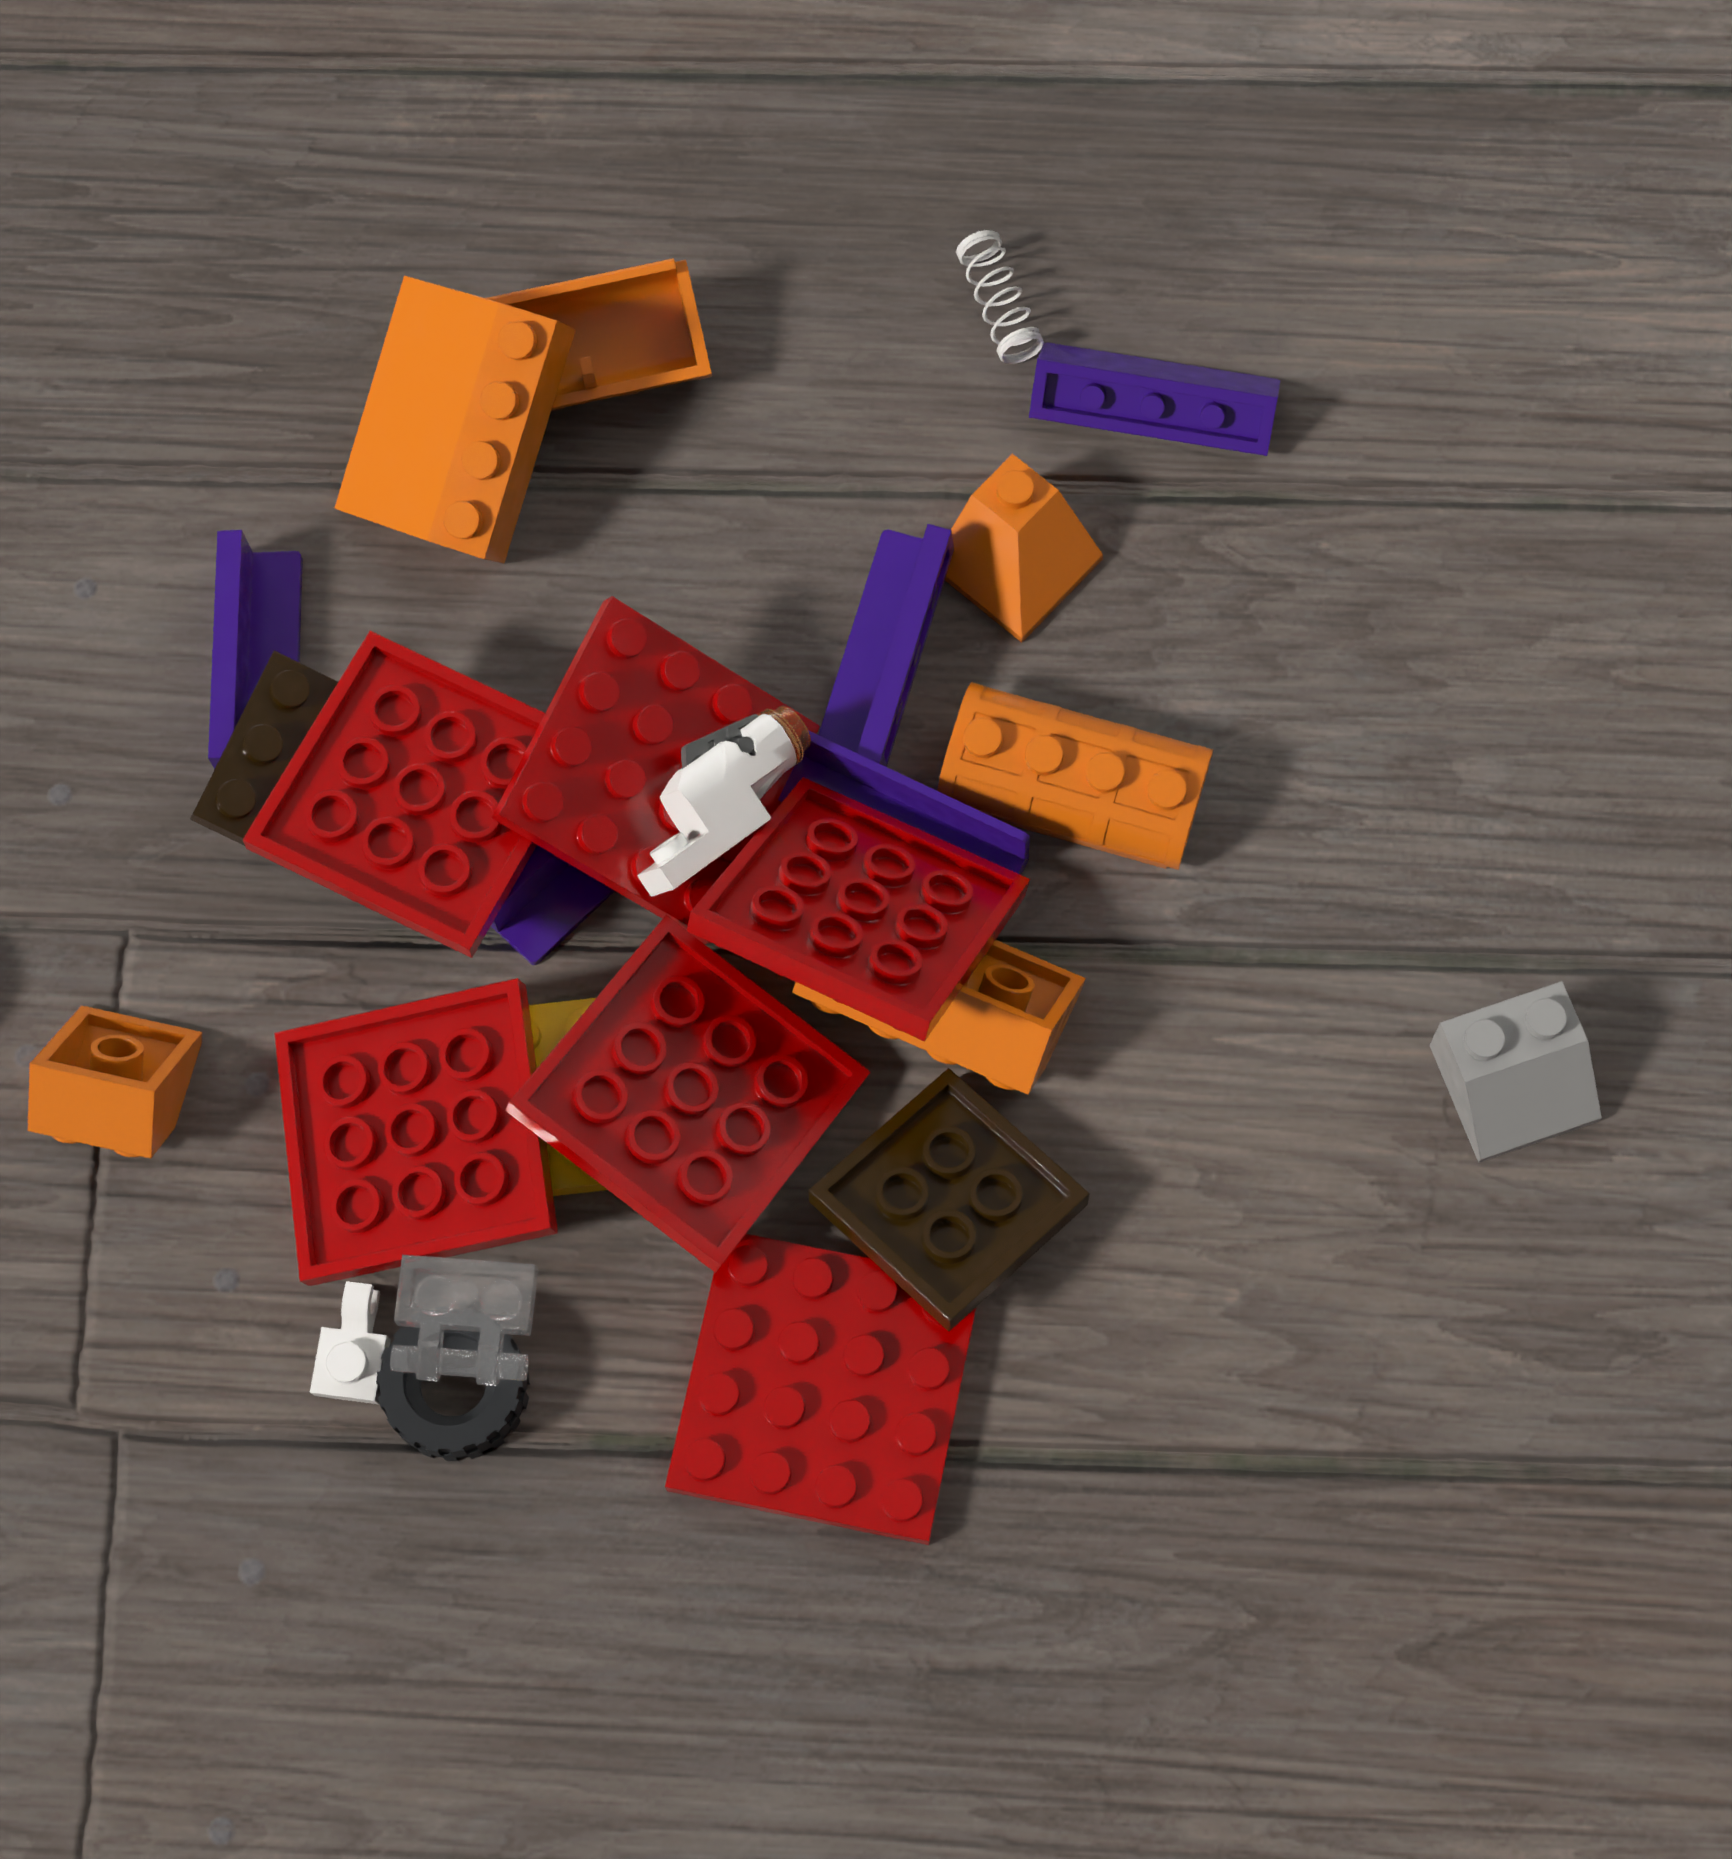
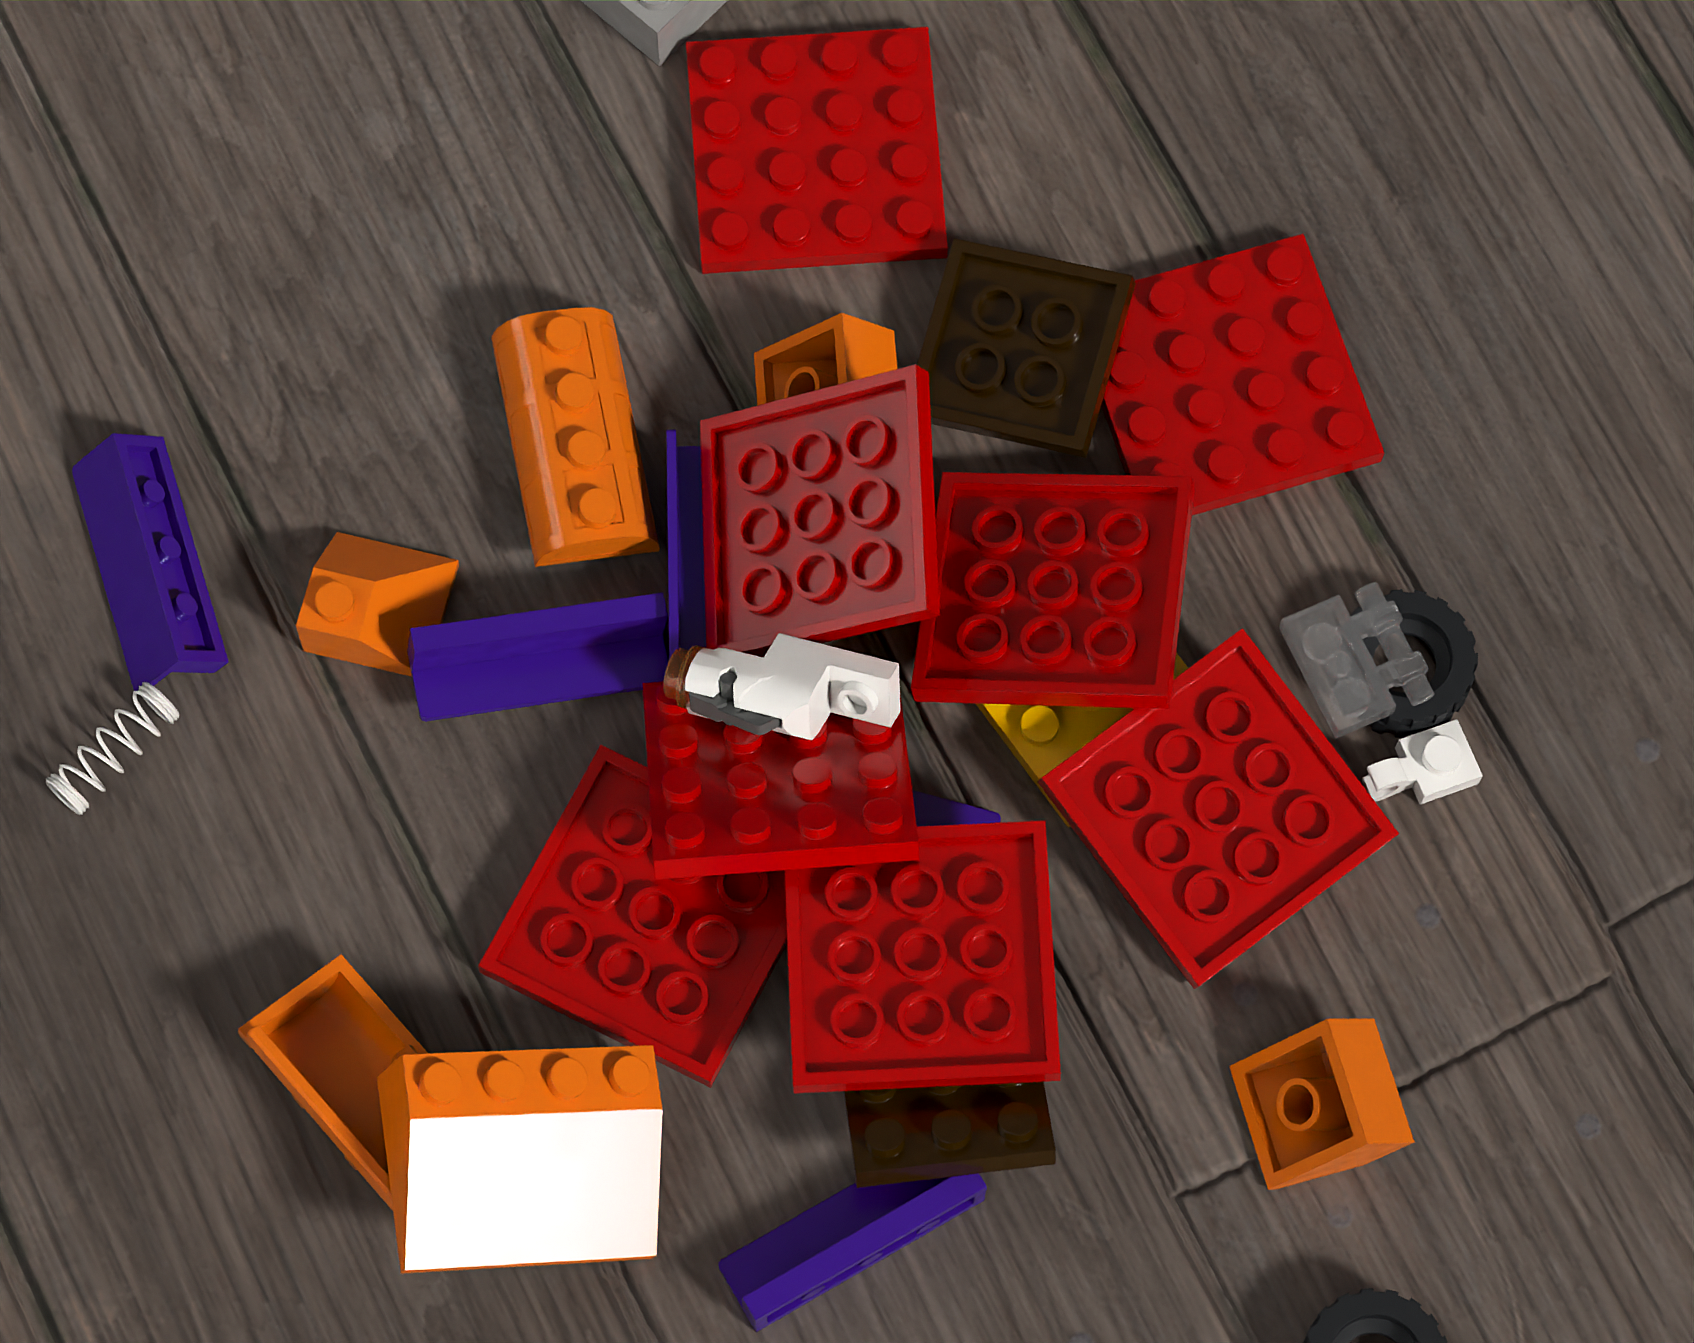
camera: 125 degrees left, 0 degrees up
(538, 606) = (632, 952): none -> red plate
(1264, 1138) = (816, 150): none -> red plate

